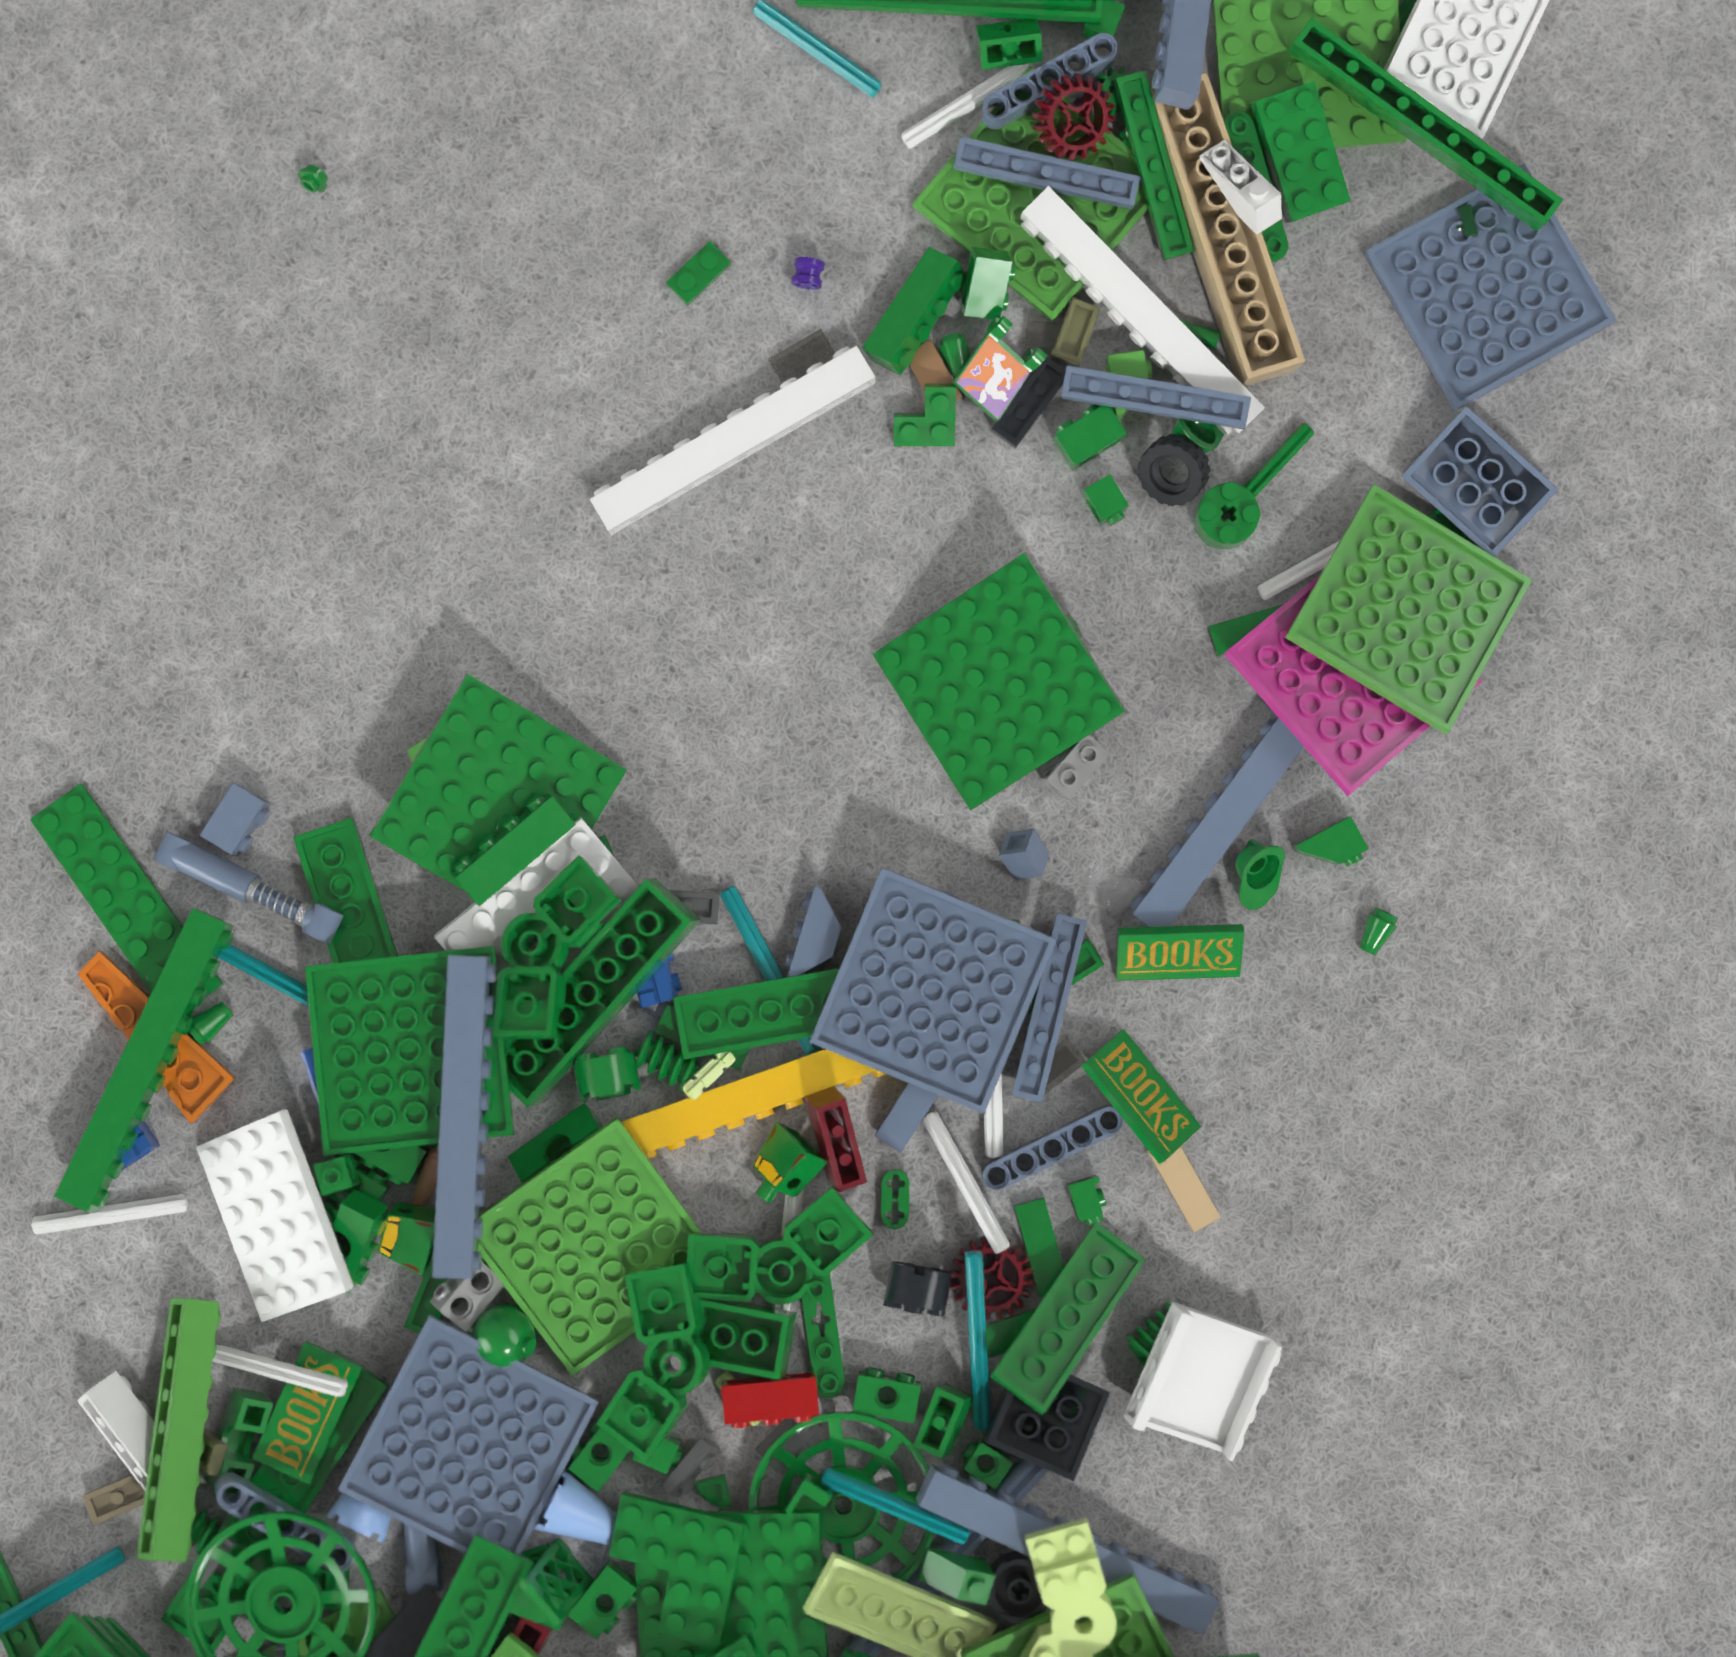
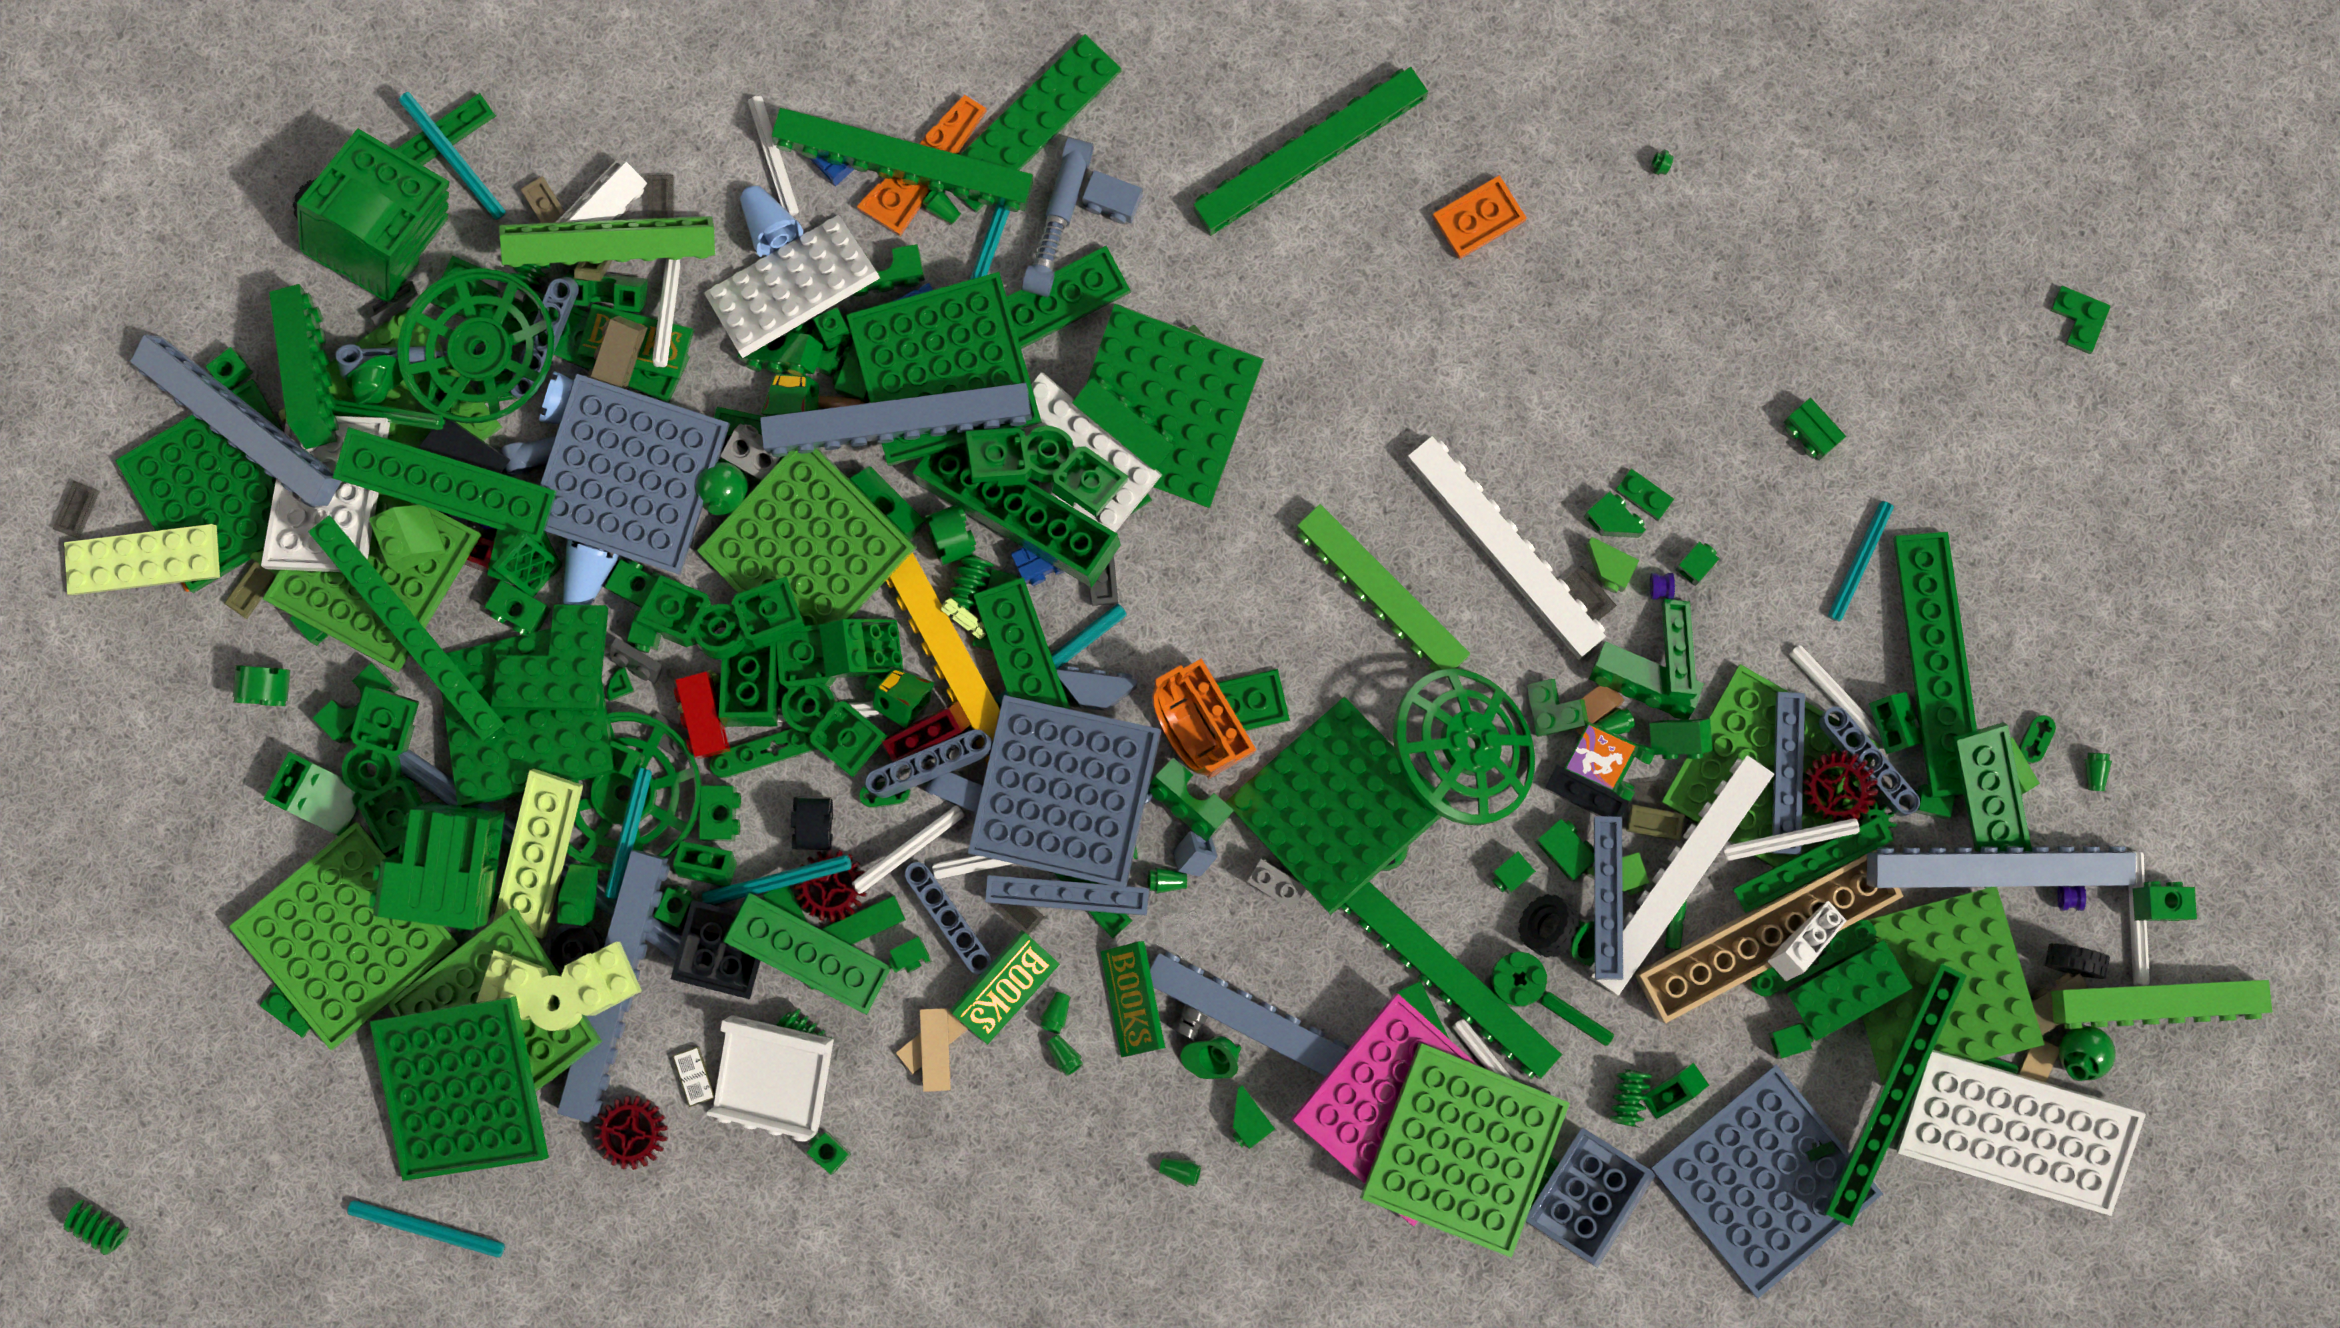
camera: 85 degrees right, 5 degrees down
(134, 1356) = (660, 196): none -> clear smoke tile
(189, 1232) = (768, 221): none -> light blue cone
(223, 579) = (1310, 151): none -> green brick
(279, 1079) = (905, 270): none -> green arch
(319, 1436) = (618, 352): none -> dark tan brick
(339, 399) = (1479, 217): none -> orange plate
(658, 69) = (1814, 430): none -> green brick
(720, 313) = (1613, 519): none -> green slope
(723, 1200) = (860, 647): none -> green slope
(760, 588) = (1381, 590): none -> bright green brick
(774, 325) = (1611, 565): none -> bright green slope
(789, 228) = (1698, 563): none -> green brick
(860, 768) = (1256, 699): none -> green tile
(871, 1156) = (917, 762): none -> sand blue beam
(883, 838) = (1186, 728): none -> orange piece
(885, 266) = (1679, 649): none -> green plate
(947, 868) = (1201, 816): none -> green arch
(958, 534) = (1456, 748): none -> green dish
(1049, 892) = (1166, 880): none -> green cone
(1124, 182) = (1791, 839): none -> white axle
(1179, 1042) = (1055, 1014): none -> green cone
(1183, 1469) = (694, 1076): none -> white tile
(1199, 1186) = (935, 1049): none -> tan tile
(1208, 890) = (1194, 1018): none -> dark grey wheel
(1218, 587) = (1453, 980): none -> green brick
(1228, 1040) = (1064, 1055): none -> green cone
(1240, 1538) = (633, 1120): none -> dark red gear
(1308, 1329) = (840, 1155): none -> green brick
(1341, 229) = (1791, 1040): none -> green brick
(1377, 366) = (1676, 1091): none -> green slope
(1377, 417) = (1630, 1098): none -> green piece

